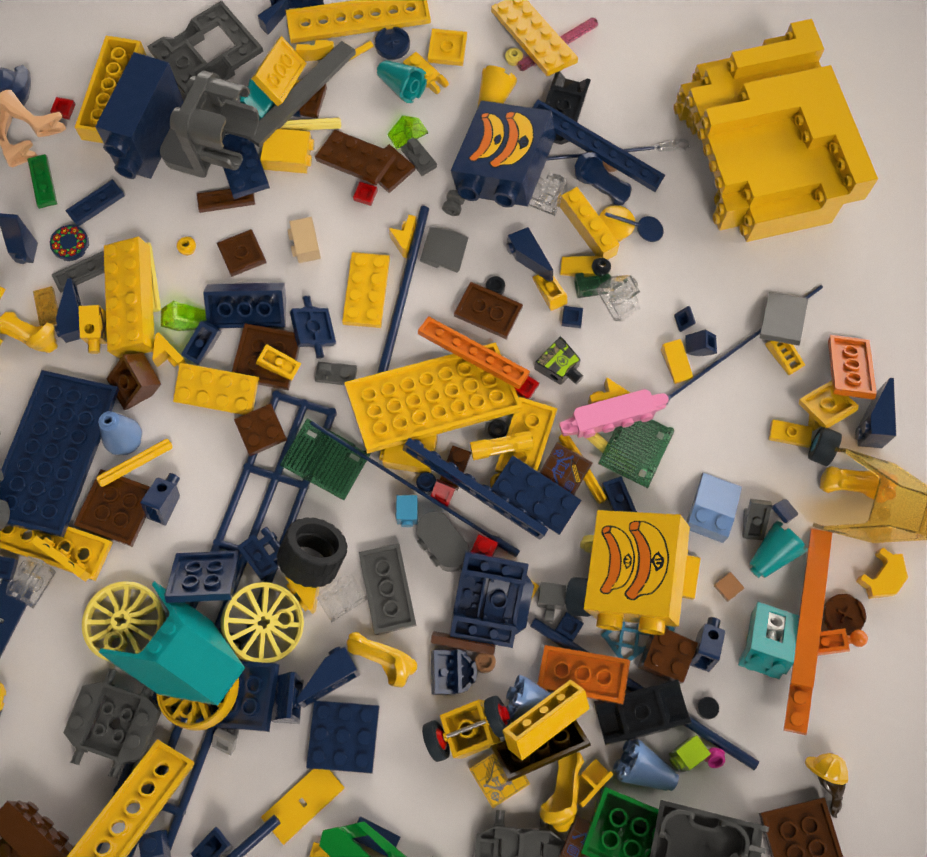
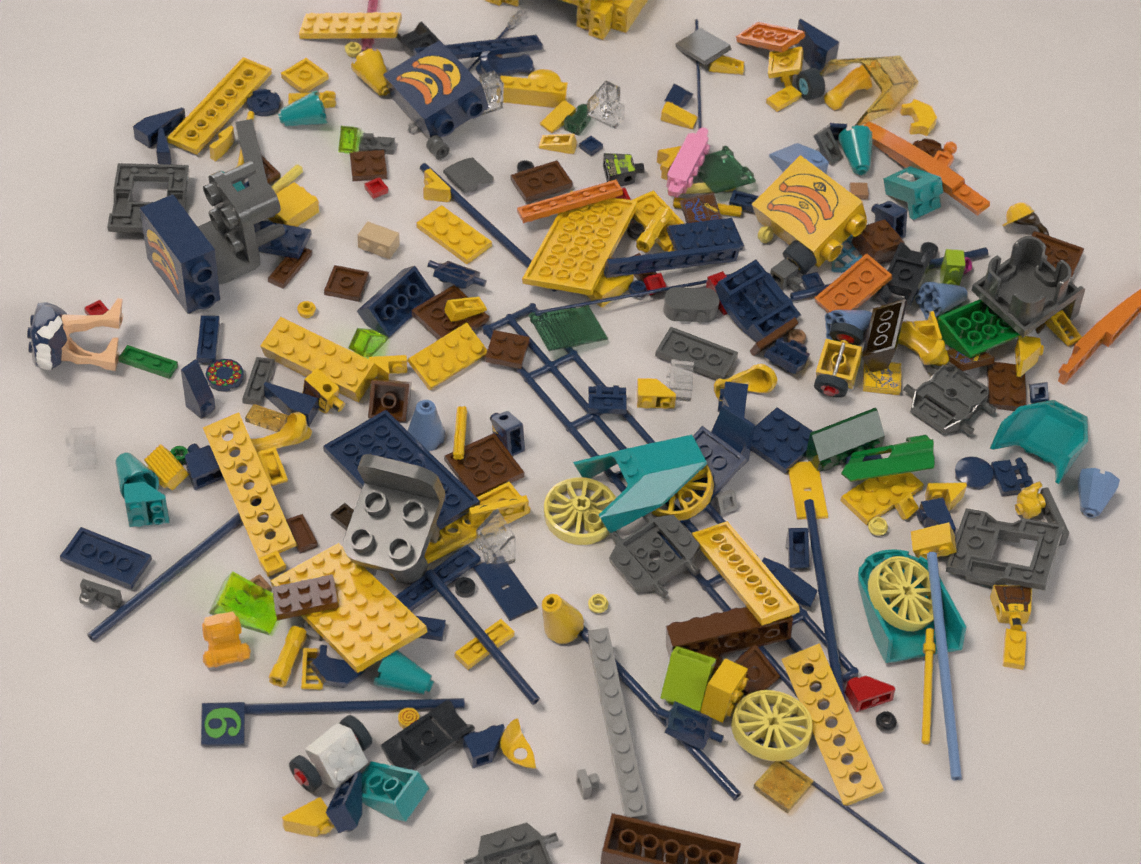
camera: 55 degrees left, 20 degrees down
(24, 711) = (598, 599): none -> light yellow plate
(106, 74) = (120, 270): yellow brick -> none
(201, 342) = (401, 337): dark blue slope -> none
(202, 576) = (596, 433): dark blue plate -> none
(267, 630) = (659, 420): light yellow piece -> none
(279, 71) = (221, 161): yellow plate -> none
(303, 567) = (637, 364): black tyre -> none
(335, 373) = (503, 288): dark grey hinge -> none
(355, 157) = (341, 173): reddish brown plate -> none
(375, 803) = (839, 440): none -> slope
(407, 510) = (650, 307): dark azure brick -> none
(528, 253) = (521, 132): dark blue slope -> none
(546, 719) = (870, 311): yellow brick -> none
(601, 271) = (574, 102): black plate -> none
(647, 227) = (564, 68): dark blue piece -> none
(684, 318) = (652, 92): dark blue slope -> none

